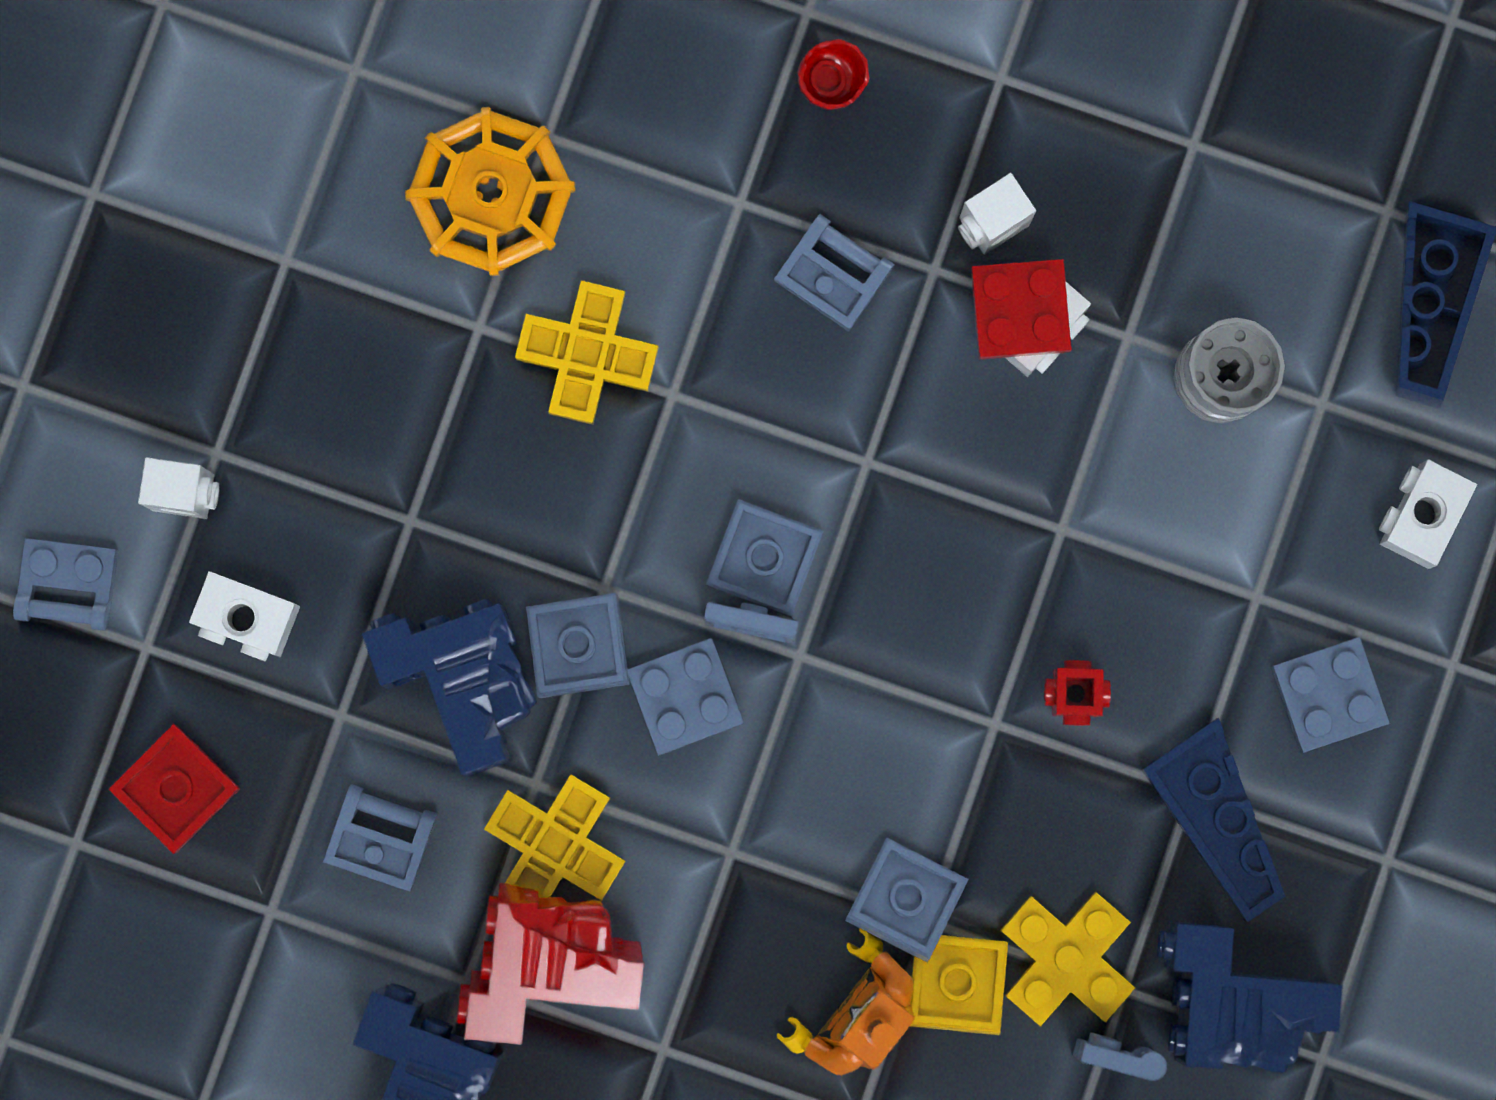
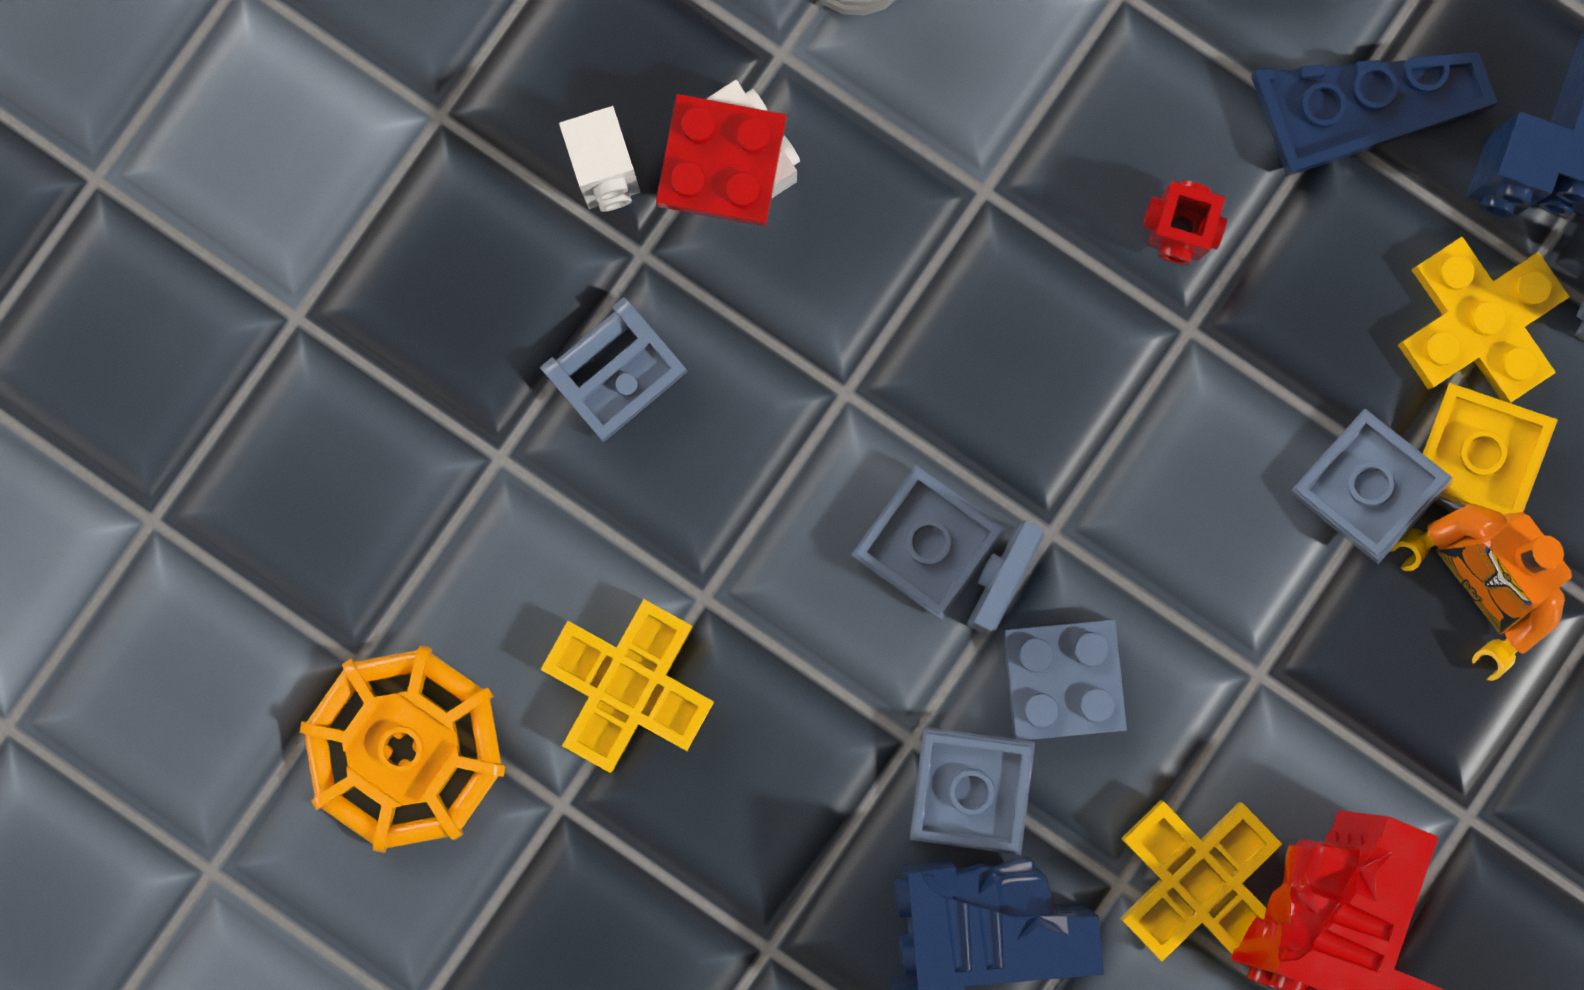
camera: 75 degrees left, 0 degrees up
(833, 74) = (379, 305): red hair -> none

